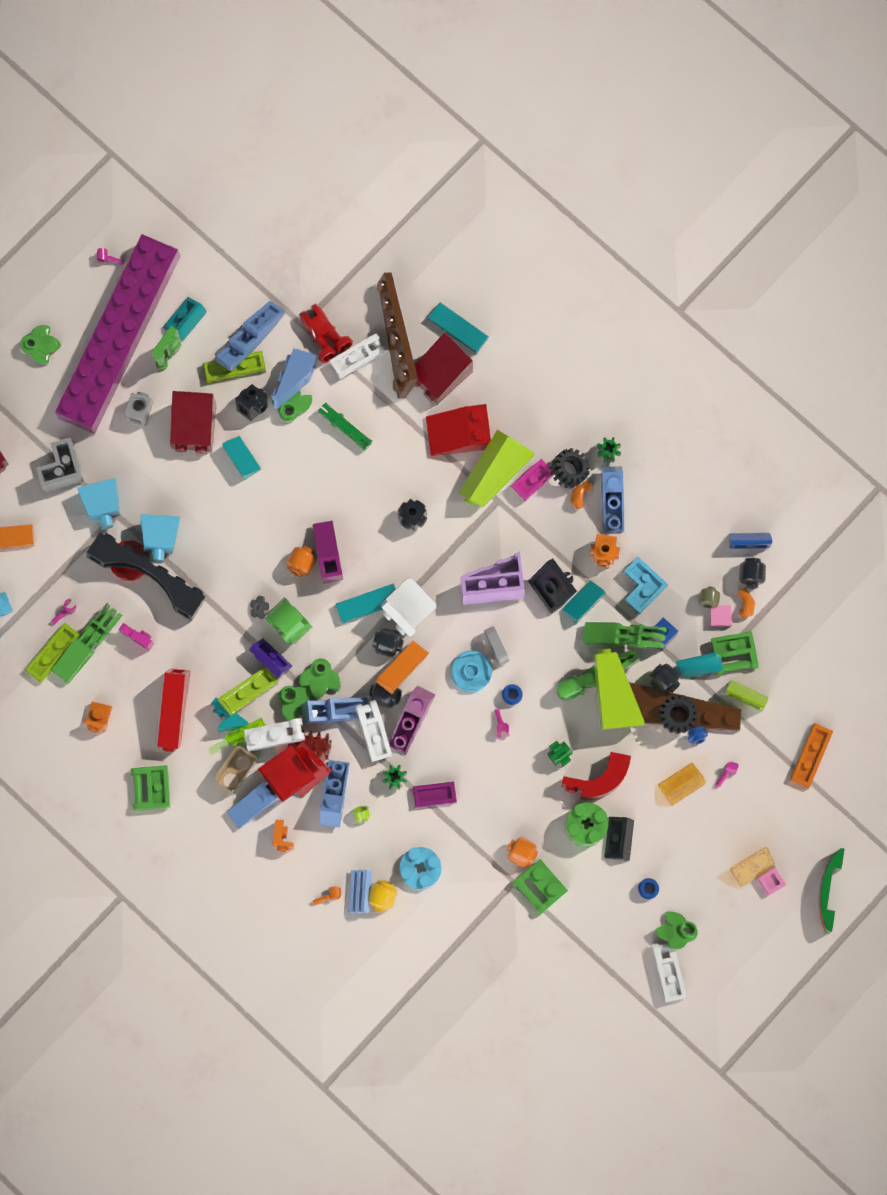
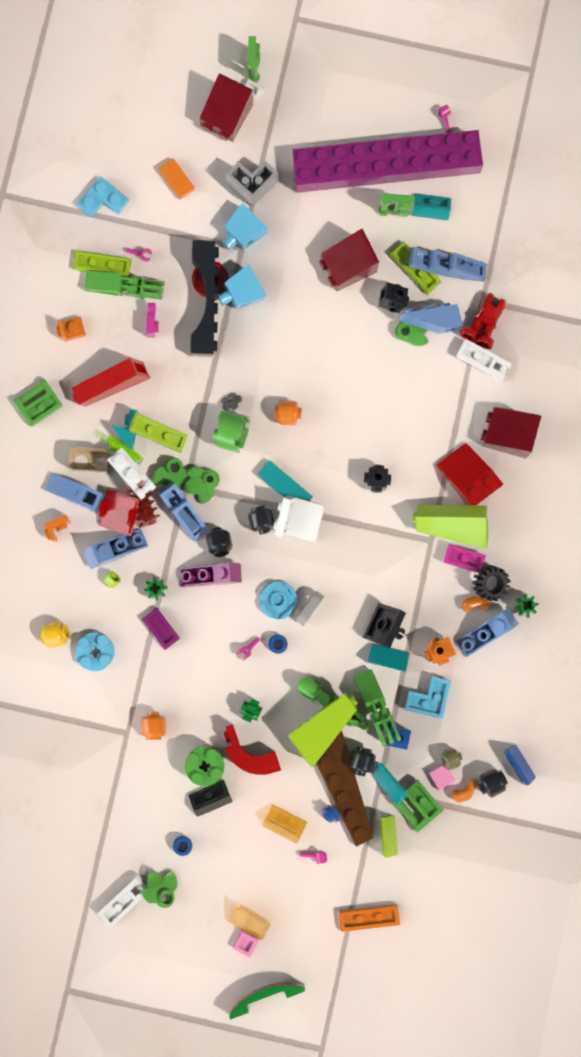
camera: 55 degrees right, 5 degrees up
(42, 342) = (343, 110): bright green plate -> none
(138, 417) = (332, 220): light grey brick -> none
(241, 457) = (344, 316): teal slope -> none
(270, 658) = (195, 434): dark purple plate -> none
(286, 773) = (105, 501): red piece -> none
(327, 552) = (307, 429): magenta slope -> none
(334, 893) = (36, 595): orange hand -> none
(338, 420) = (418, 383): green pin -> none
(357, 892) = (48, 614): light blue tile -> none
(373, 731) = (182, 551): white plate -> none
(399, 347) = (509, 387): reddish brown wing -> none
(402, 667) = (247, 543): orange tile -> none
(458, 327) = (555, 425): teal tile -> none
(494, 583) = (360, 577): lavender wedge -> none
(545, 882) = (140, 758): bright green plate -> none
(669, 723) = (337, 801): black tyre -> none

